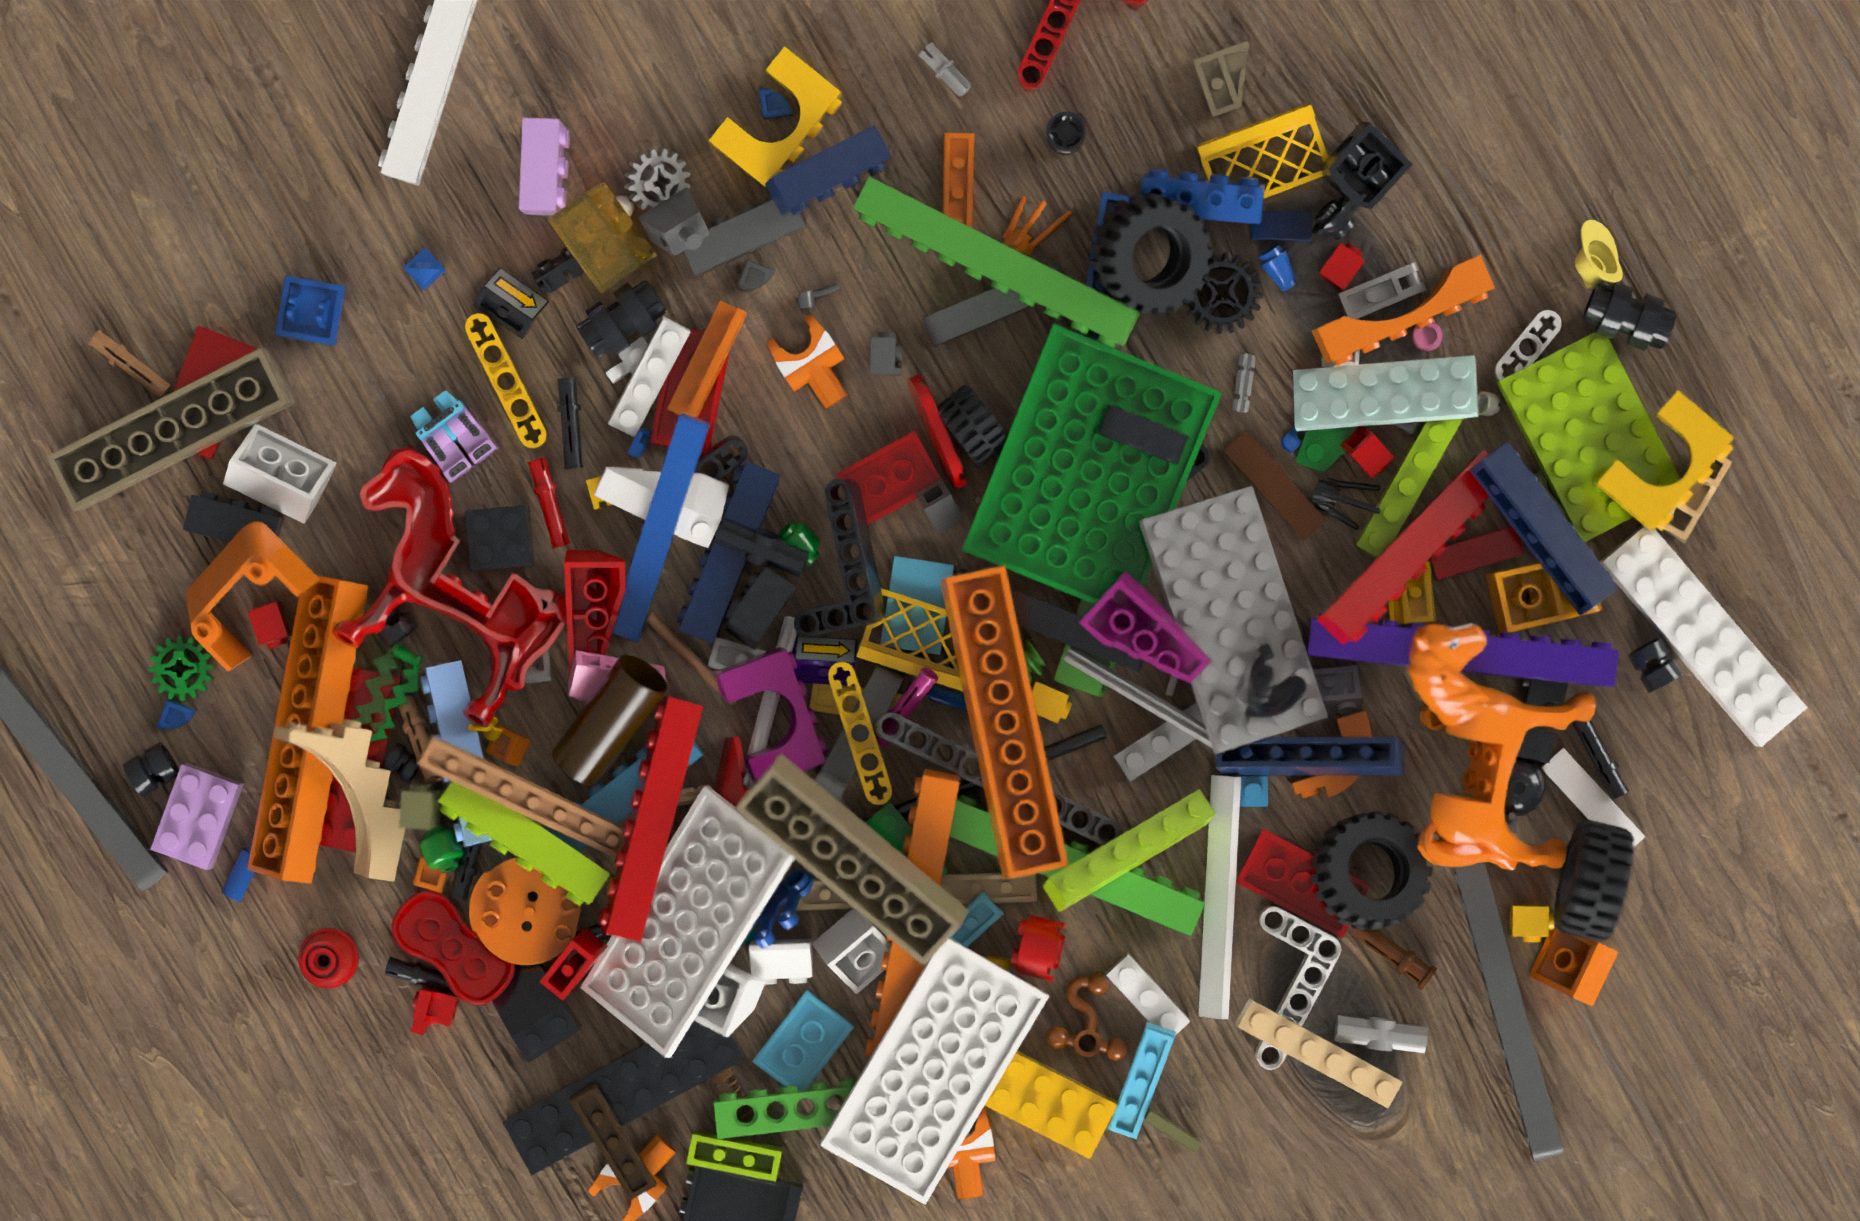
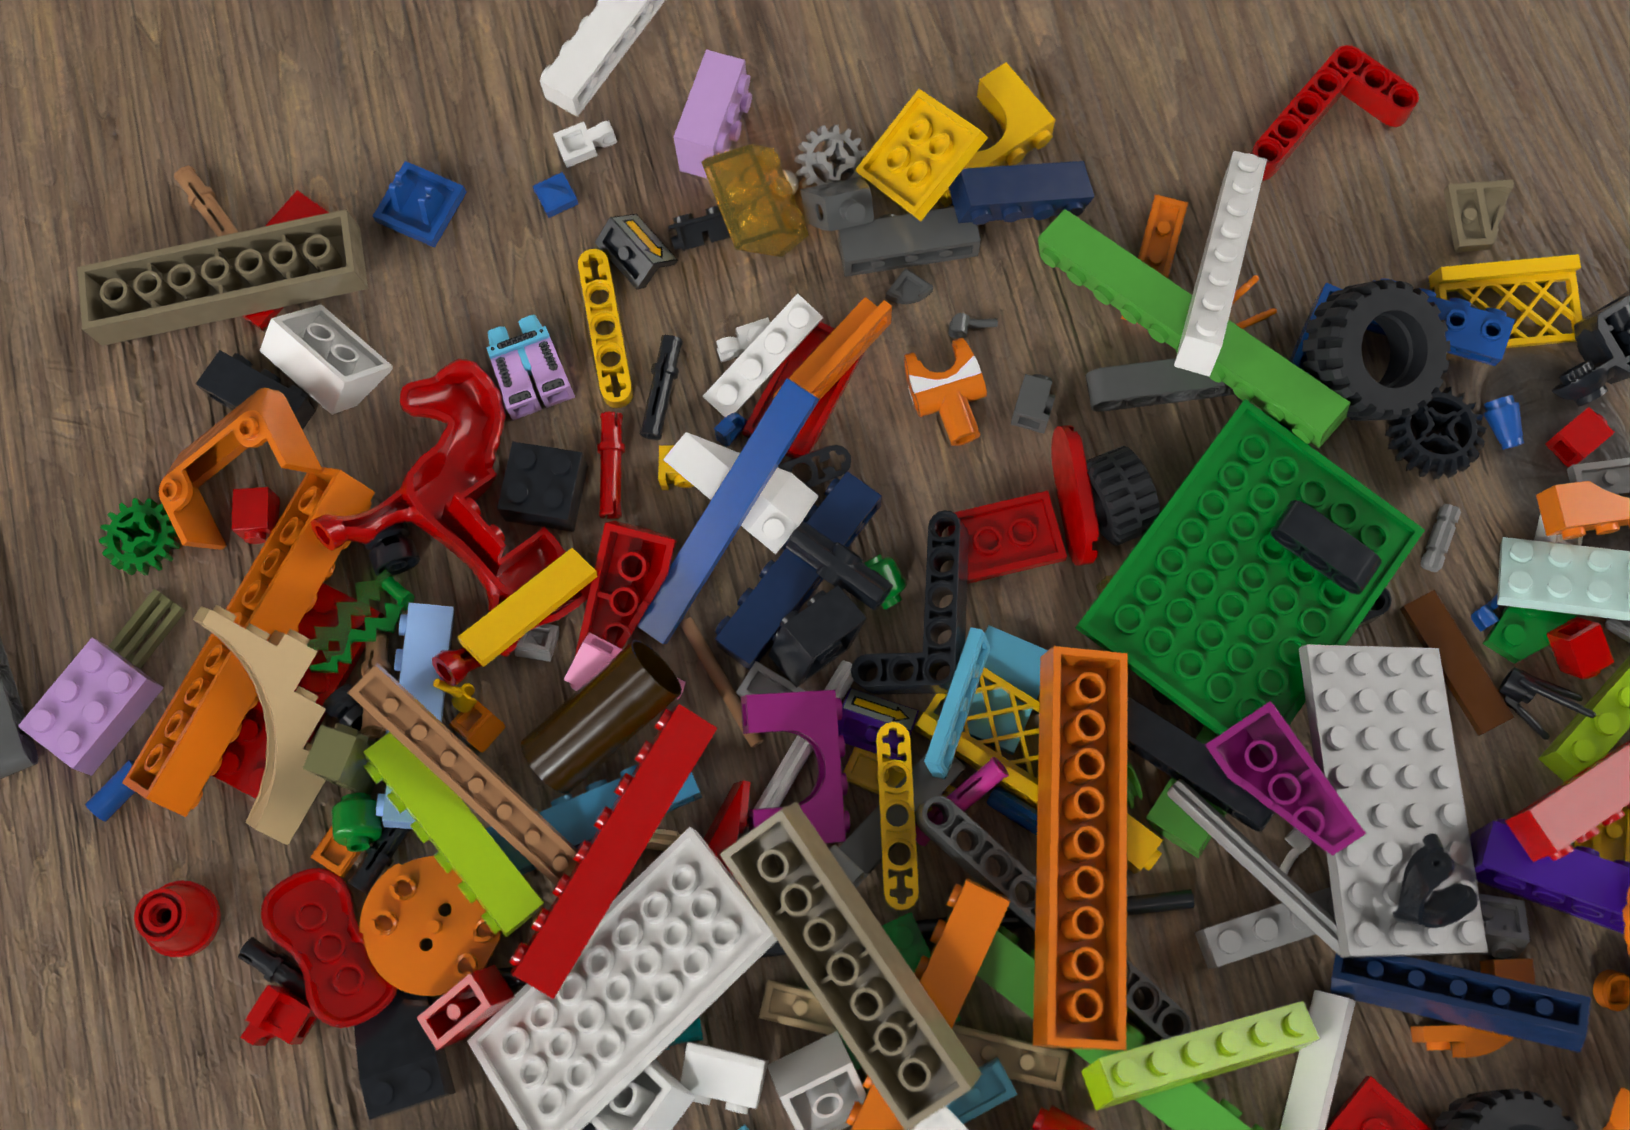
camera: 20 degrees right, 15 degrees down
(151, 769) = (53, 640): black wheel -> none
(175, 715) = (114, 589): blue tile -> none
(195, 761) = (120, 642): none -> olive tile
(430, 216) = (579, 144): none -> white plate
(524, 648) = (527, 607): none -> yellow tile
(634, 310) = (733, 292): black piece -> none
(733, 168) = (921, 154): none -> yellow plate
(773, 104) = (976, 118): blue tile -> none
(790, 891) = (766, 985): blue plant -> none
(884, 633) = (957, 703): none -> medium azure tile
(940, 506) = (1057, 580): dark grey brick -> none
(945, 70) = (1171, 132): light grey axle -> none
(1009, 202) = (1220, 264): none -> white brick
(1066, 133) = (1292, 221): black wheel -> none
(1254, 791) = (1367, 1026): dark azure plate -> none
(1283, 227) = (1510, 379): dark blue slope -> none

